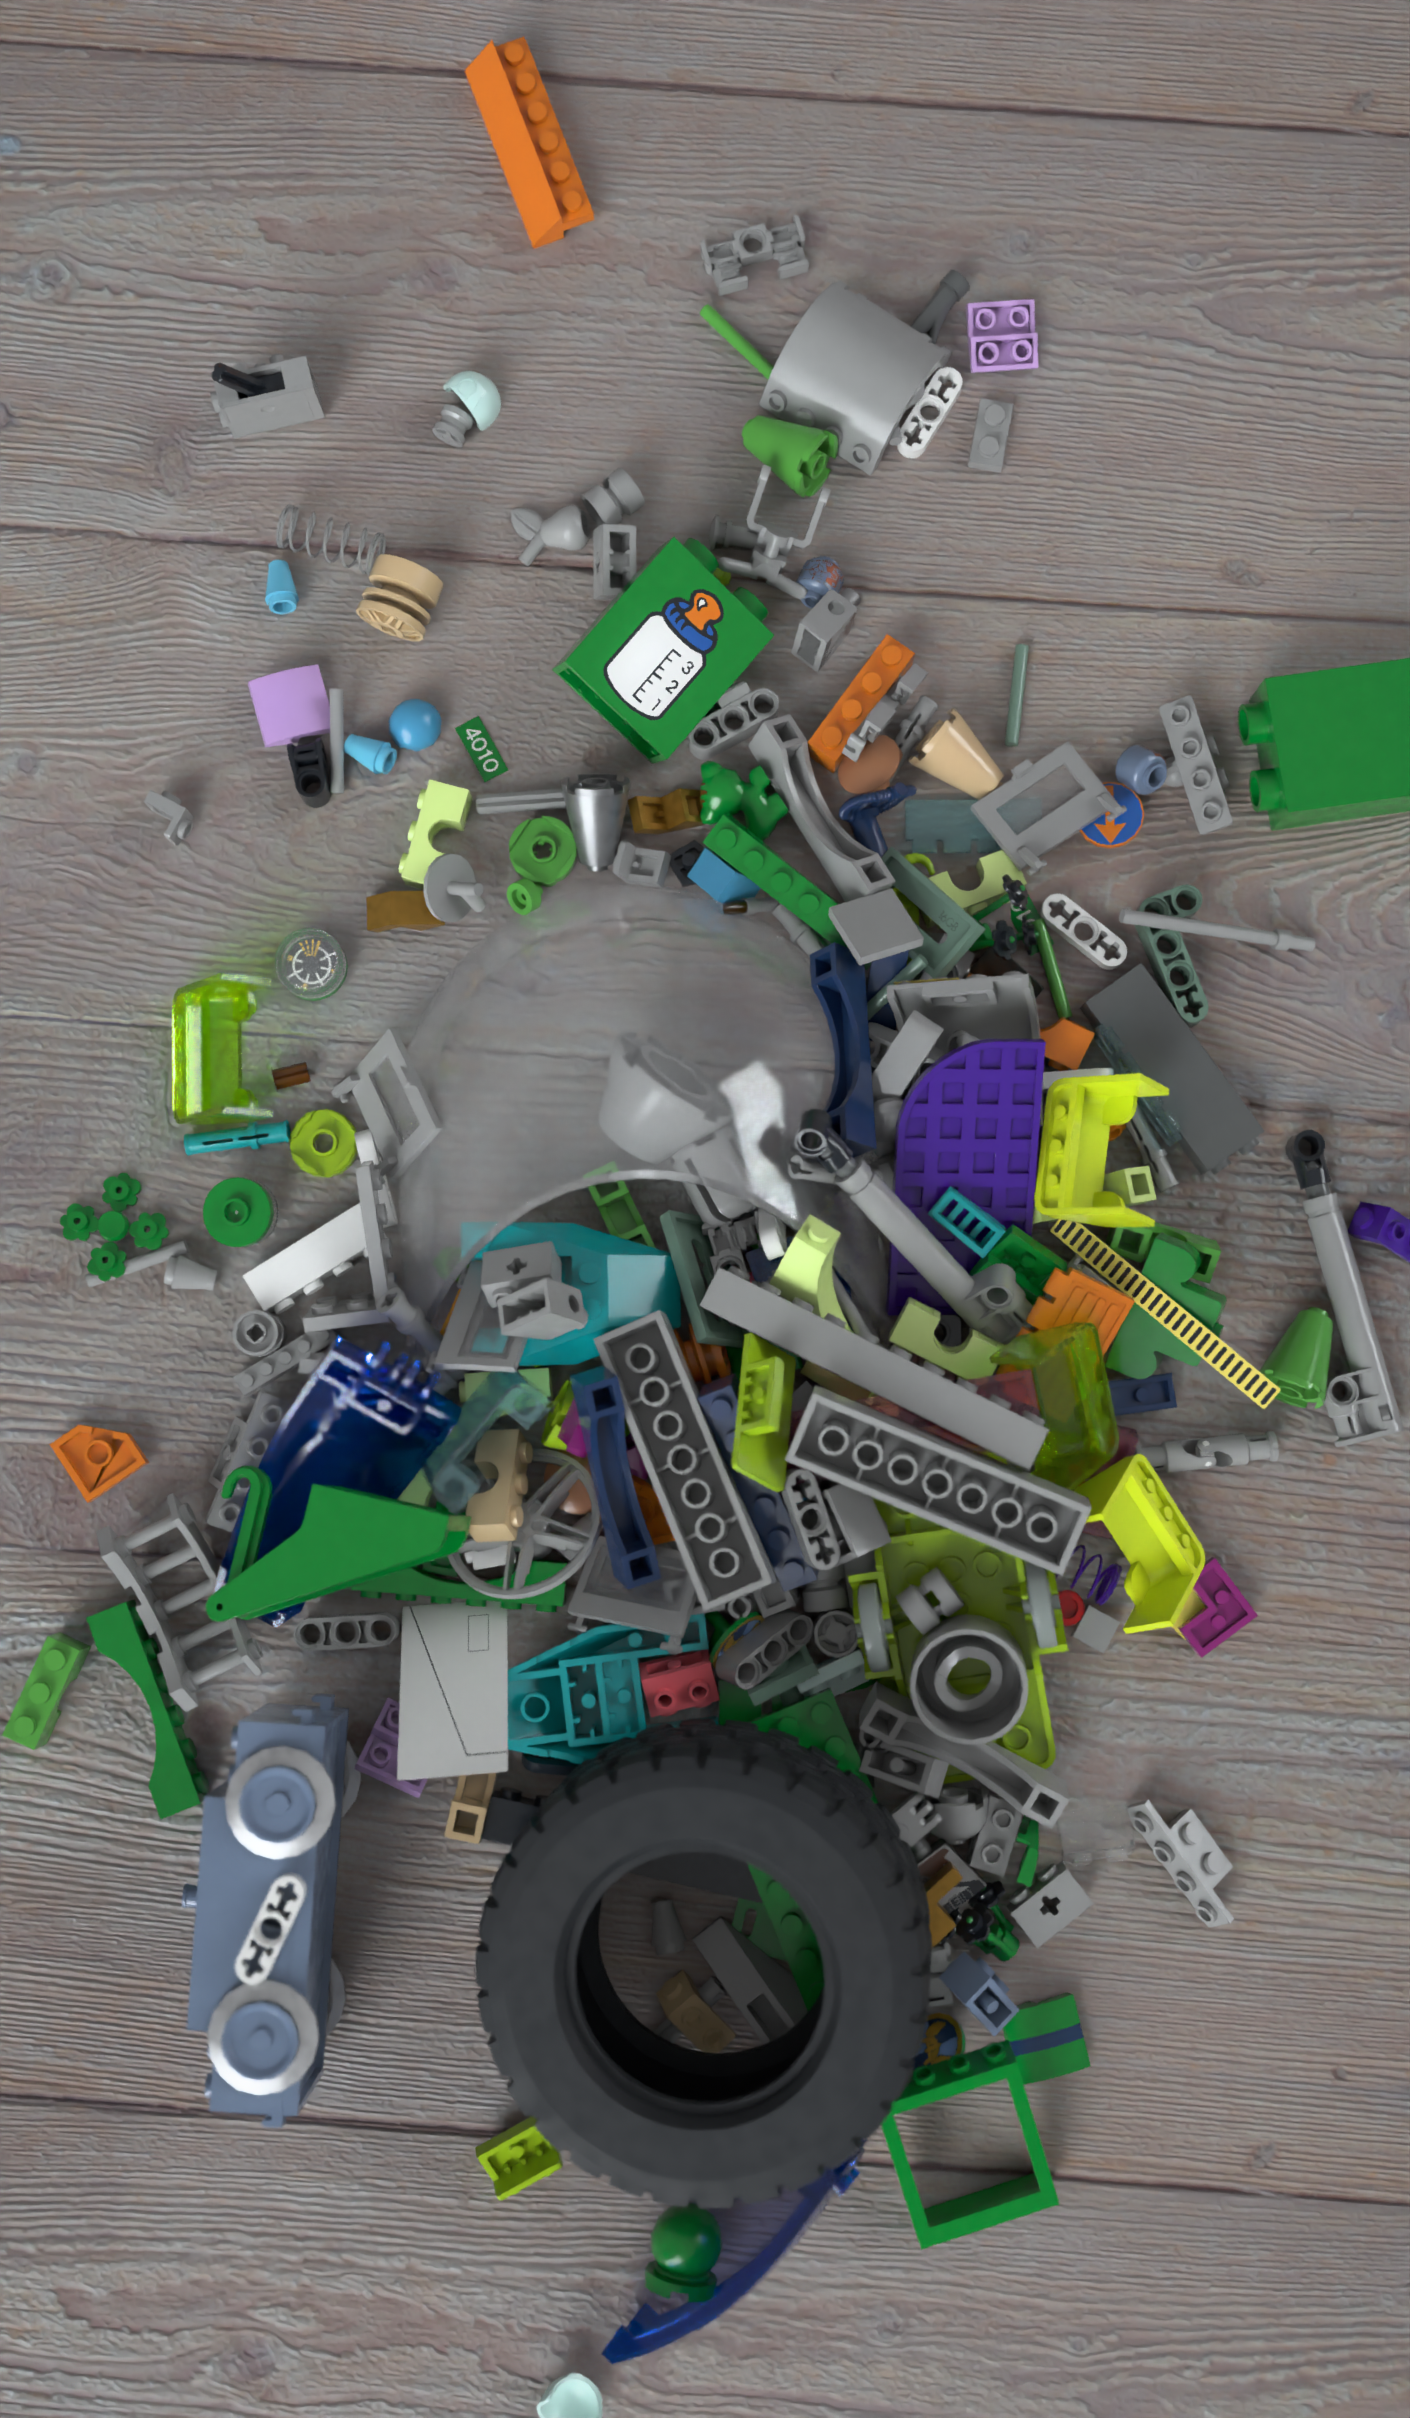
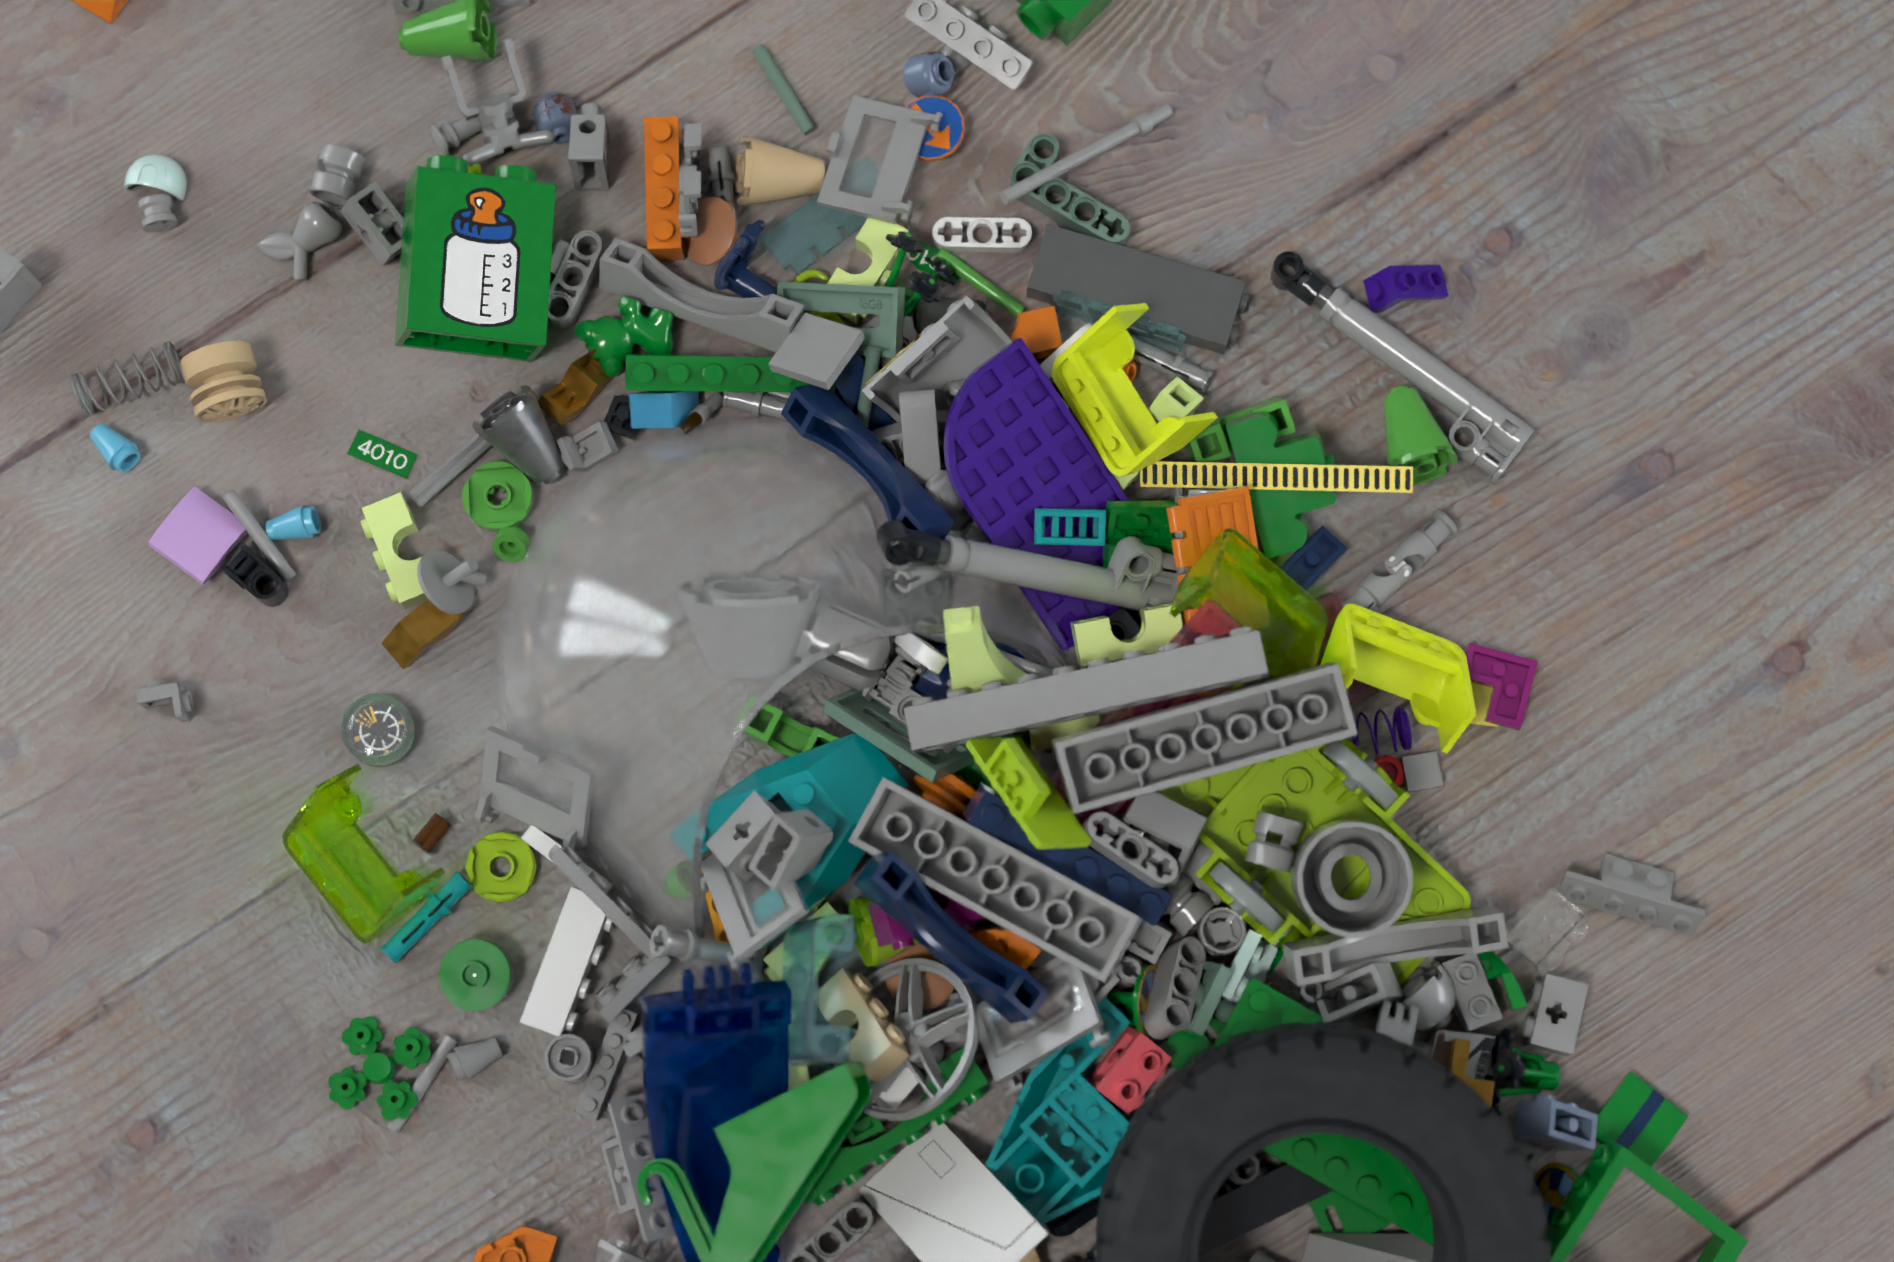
camera: 40 degrees left, 5 degrees down
(414, 725) = (312, 475): dark azure hair -> none

